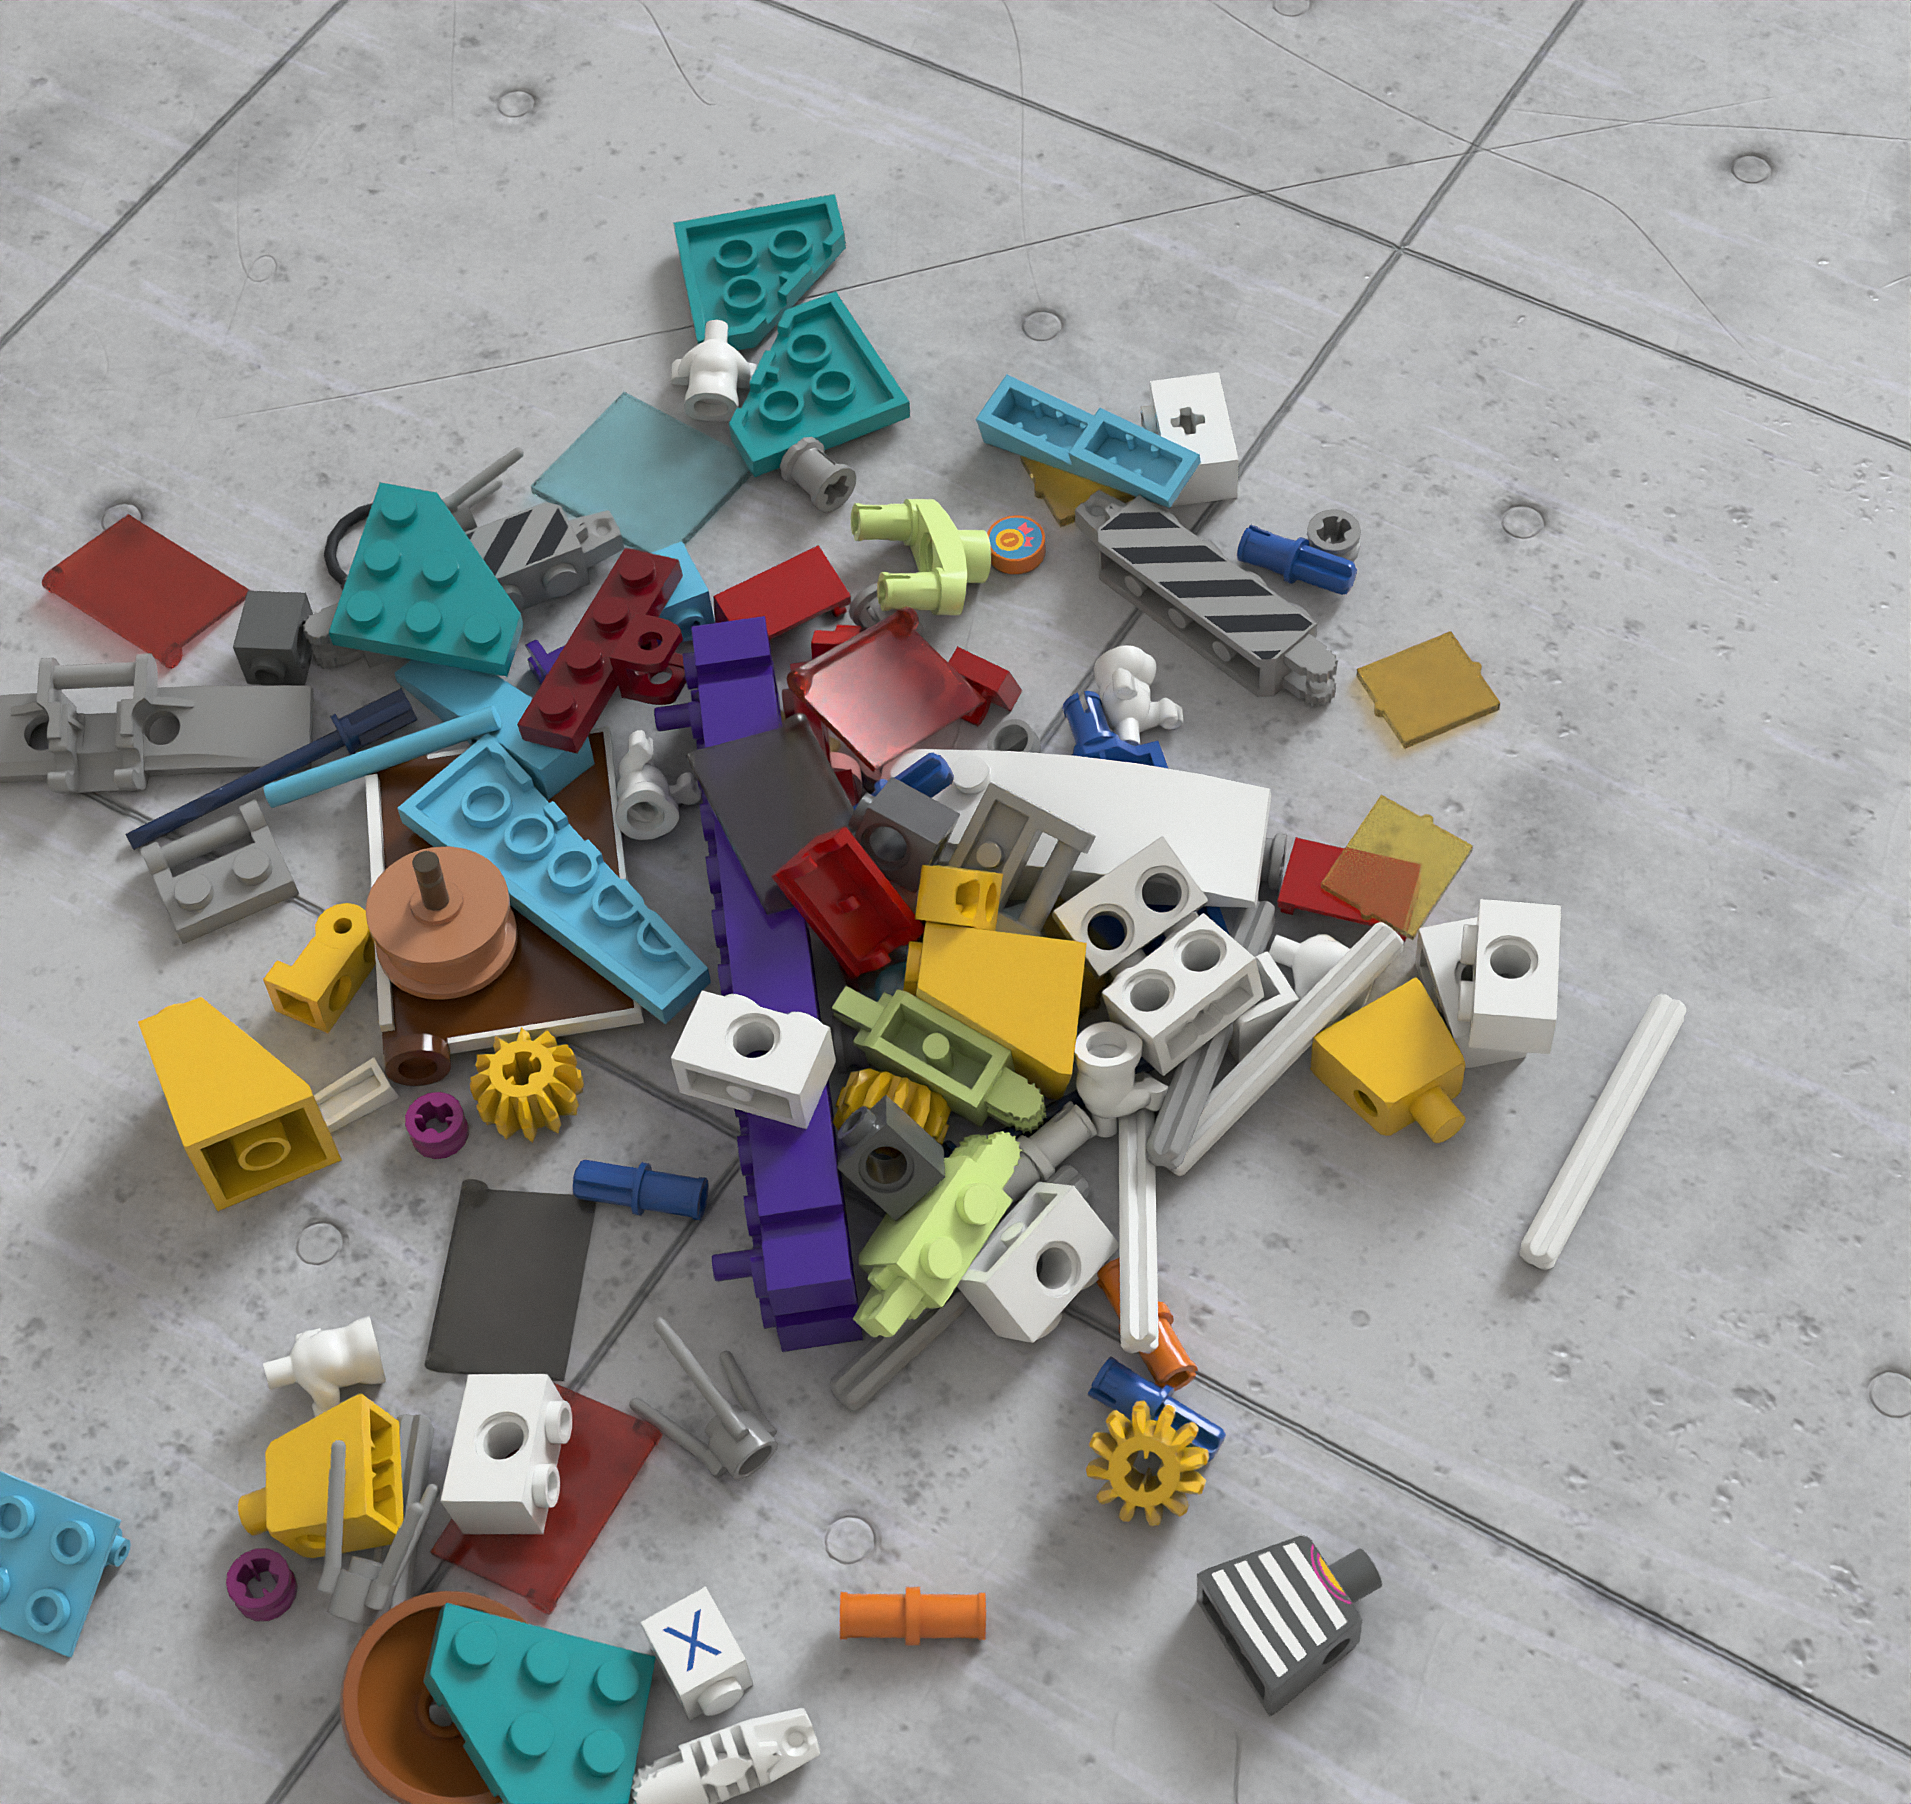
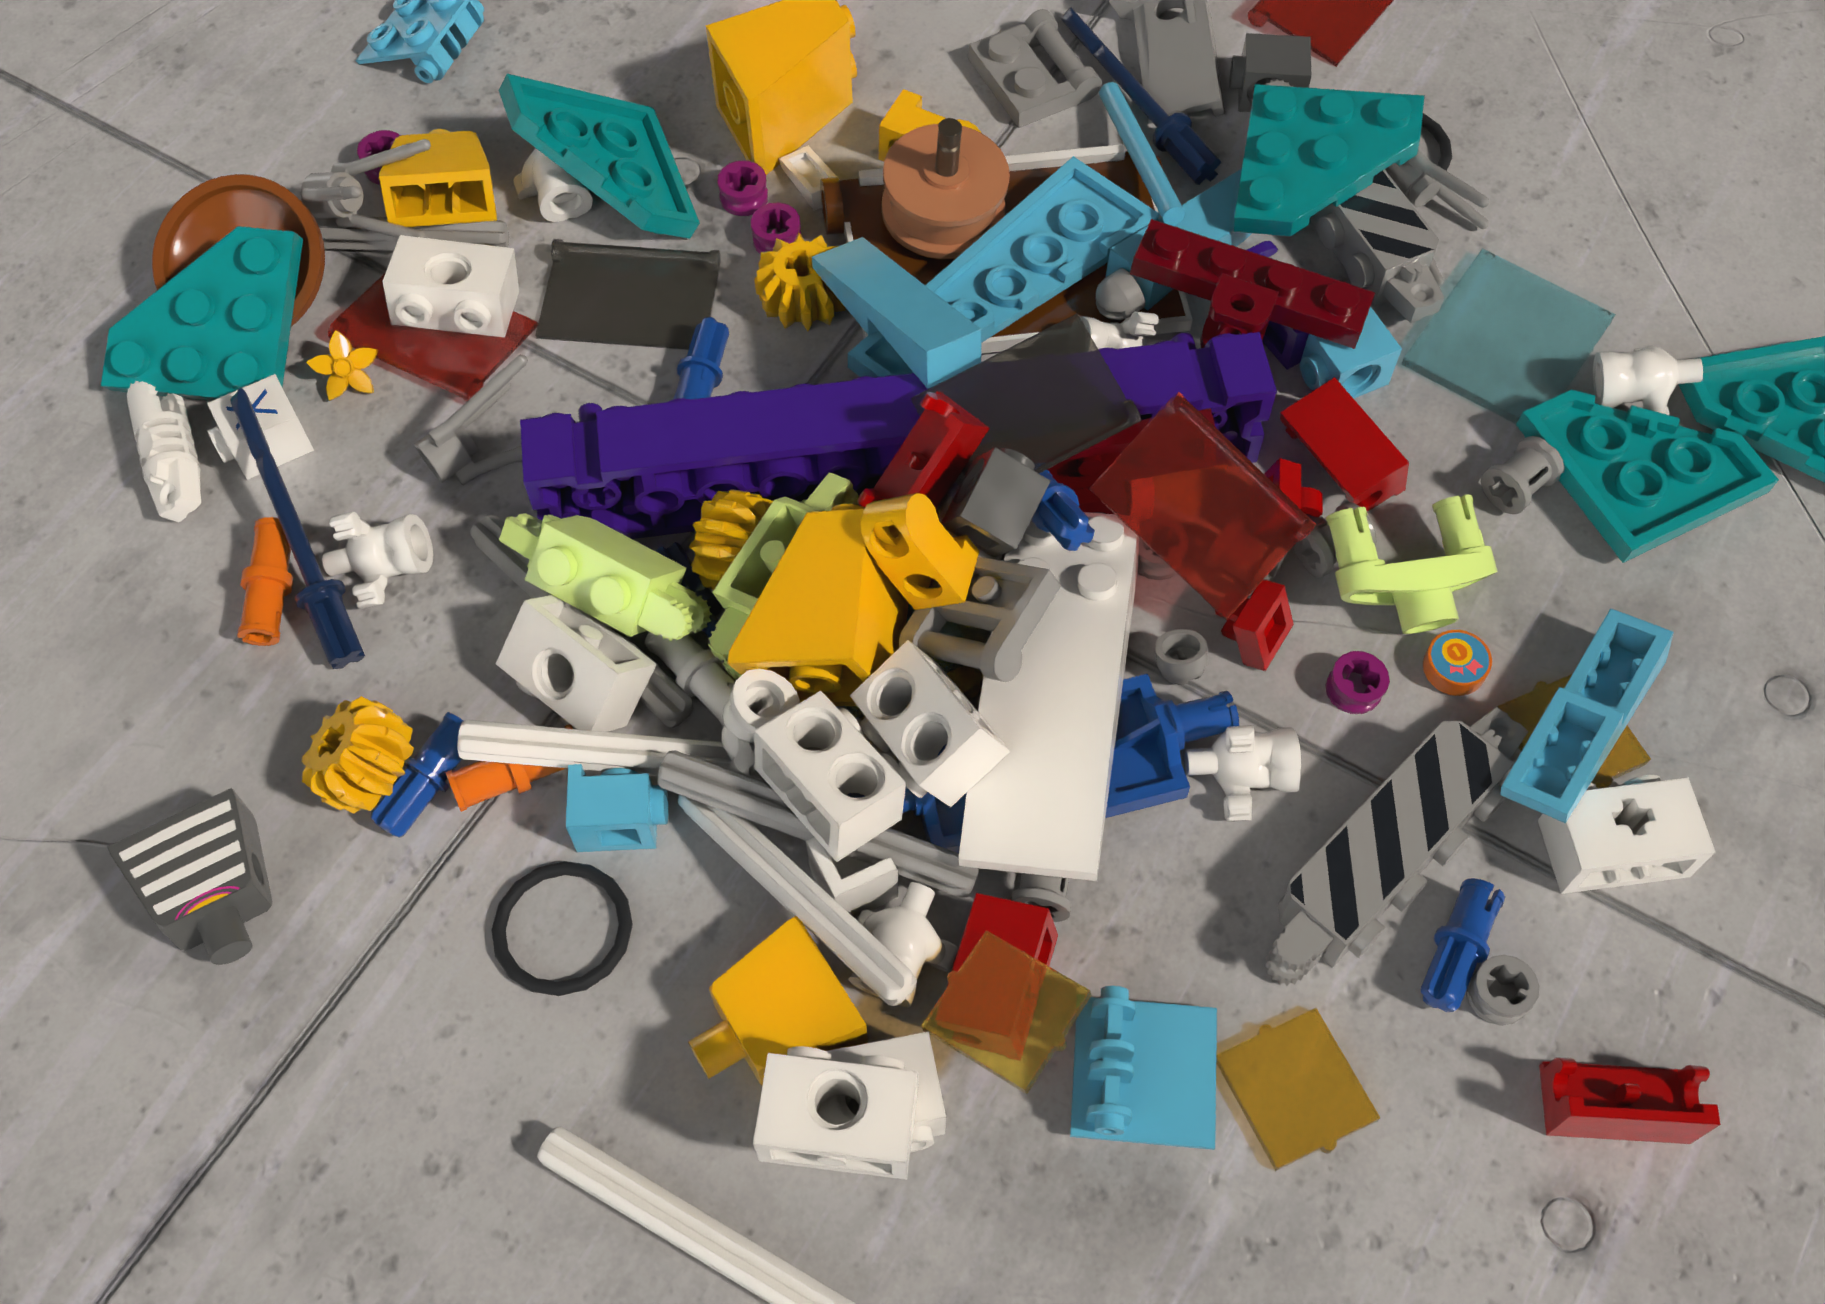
camera: 85 degrees right, 5 degrees up
(313, 1292) = (607, 147): none -> teal plate
(377, 1180) = (731, 181): none -> magenta bush
(587, 776) = (1119, 296): none -> light grey hinge
(603, 961) = (910, 316): none -> medium azure slope
(608, 1577) = (344, 366): none -> yellow plant
(777, 1085) = (738, 386): white brick -> none
(880, 1496) = (378, 553): none -> white piece
(895, 1182) = (660, 518): dark grey brick -> none
(940, 1545) = (321, 597): none -> dark blue piece
(1036, 635) = (1341, 690): none -> magenta bush
(1193, 1224) = (614, 810): none -> medium azure brick
(1307, 1331) = (593, 976): none -> black piece
(1424, 467) = (1625, 1102): none -> red hinge
(1432, 779) = (1144, 1072): none -> medium azure hinge

